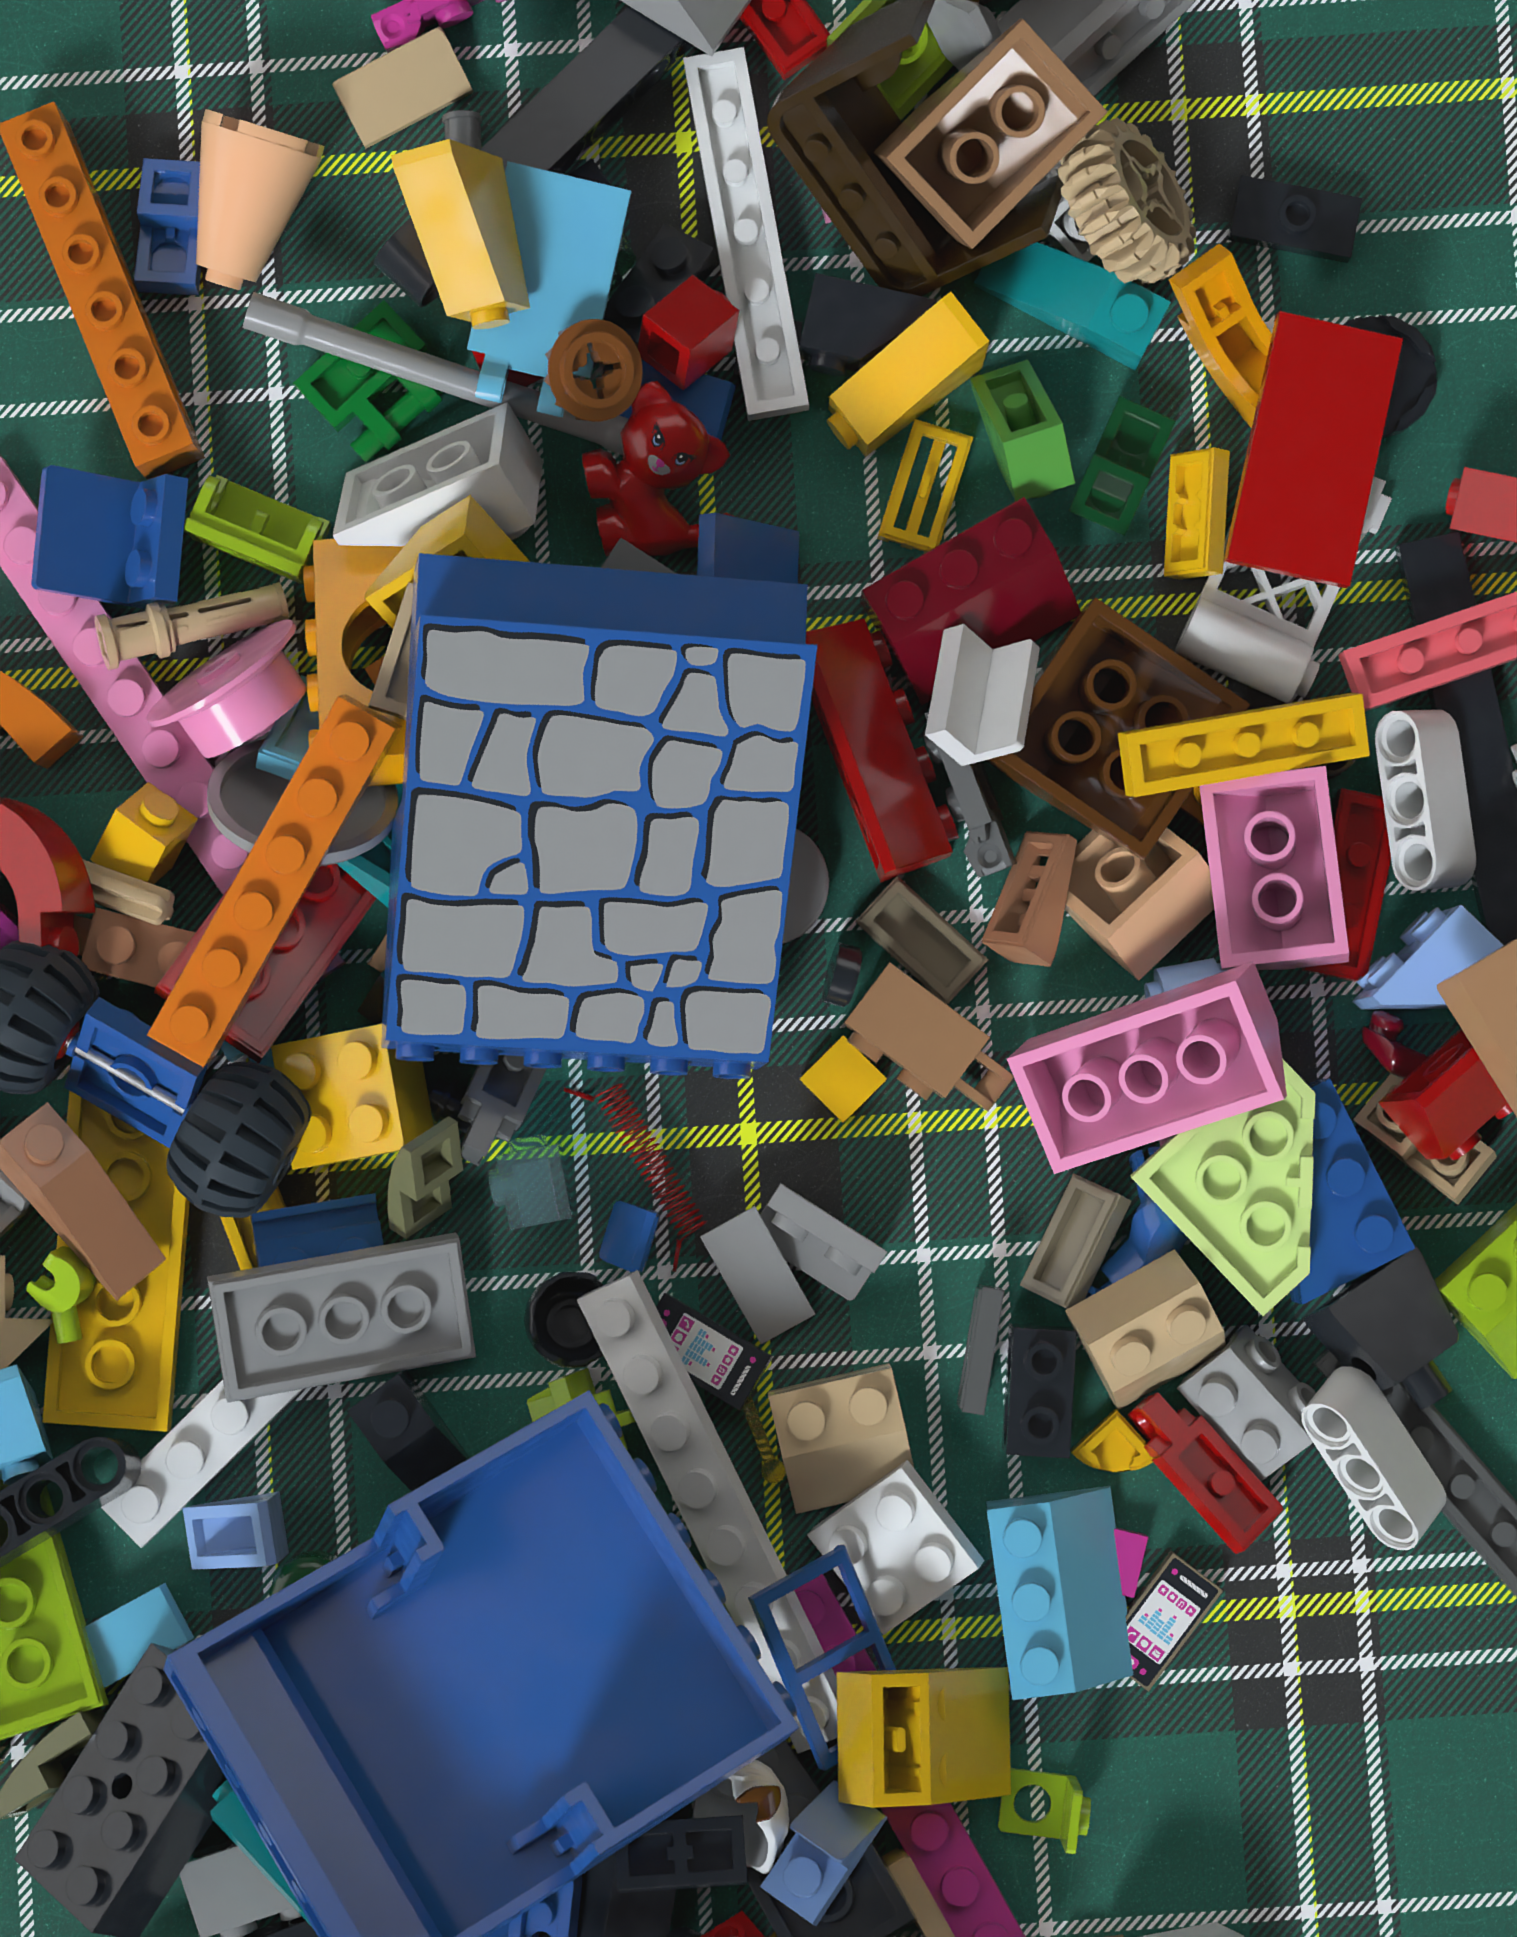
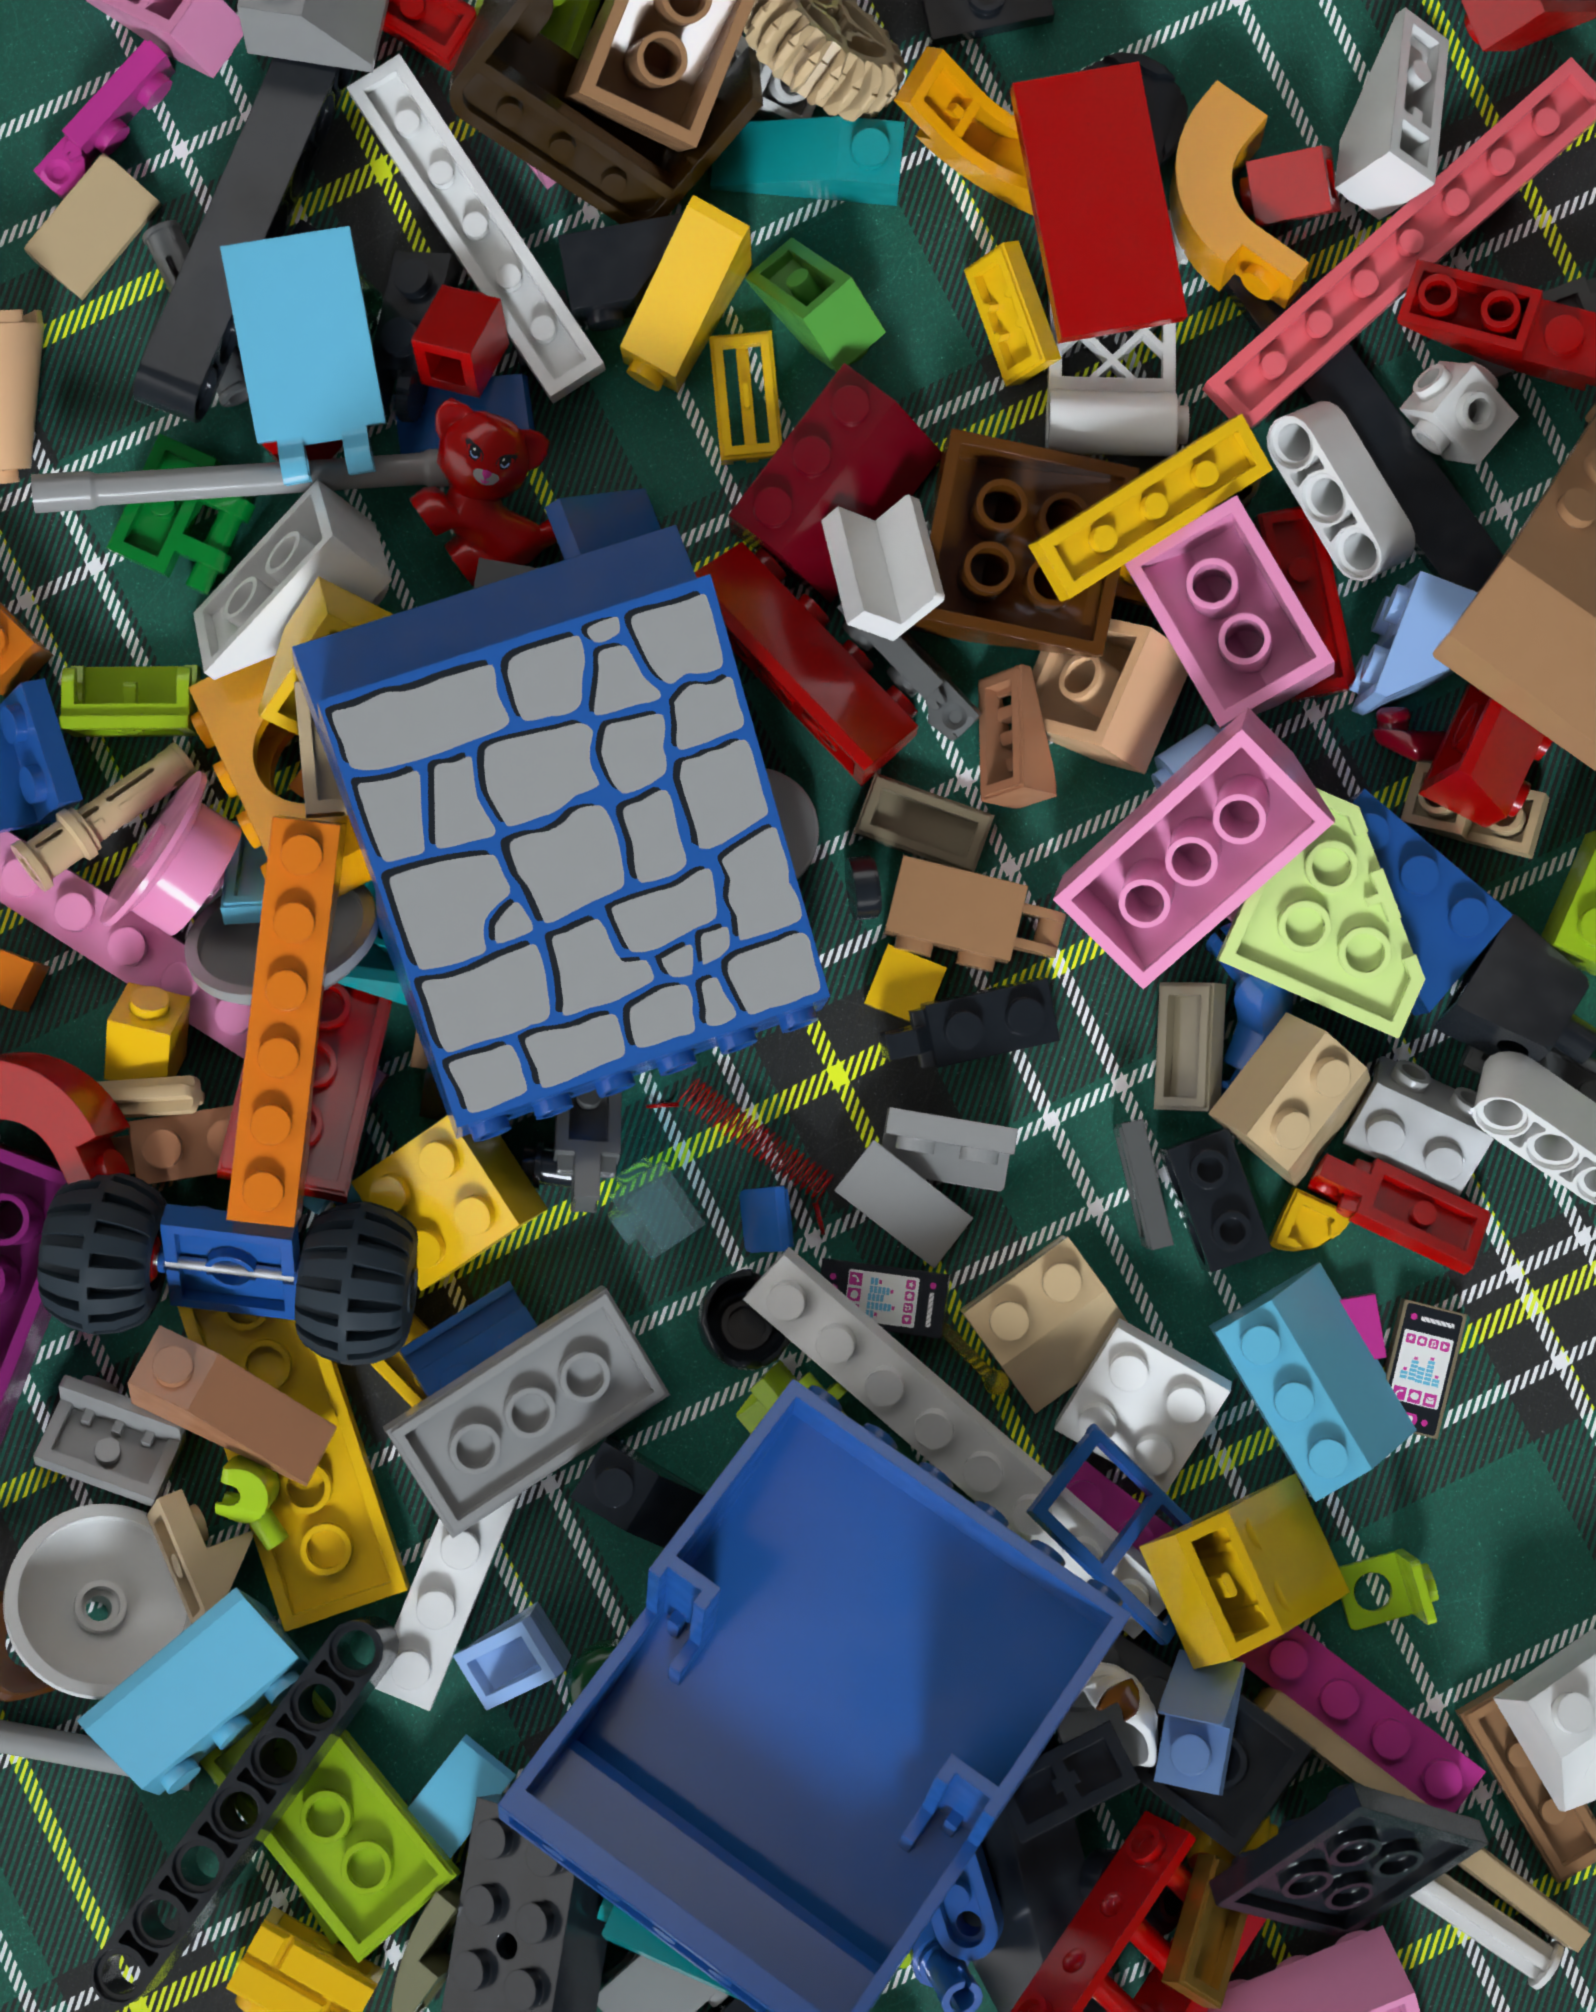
camera: 25 degrees left, 0 degrees up
(421, 1178) = (546, 1245): olive slope -> none
(465, 229) = (205, 324): yellow slope -> none
(614, 389) = (388, 382): dark orange gear -> none
(890, 1142) = (975, 1025): none -> black hinge
(1122, 465) = (922, 298): dark green slope -> none
(1408, 504) = (1205, 212): none -> light orange arch

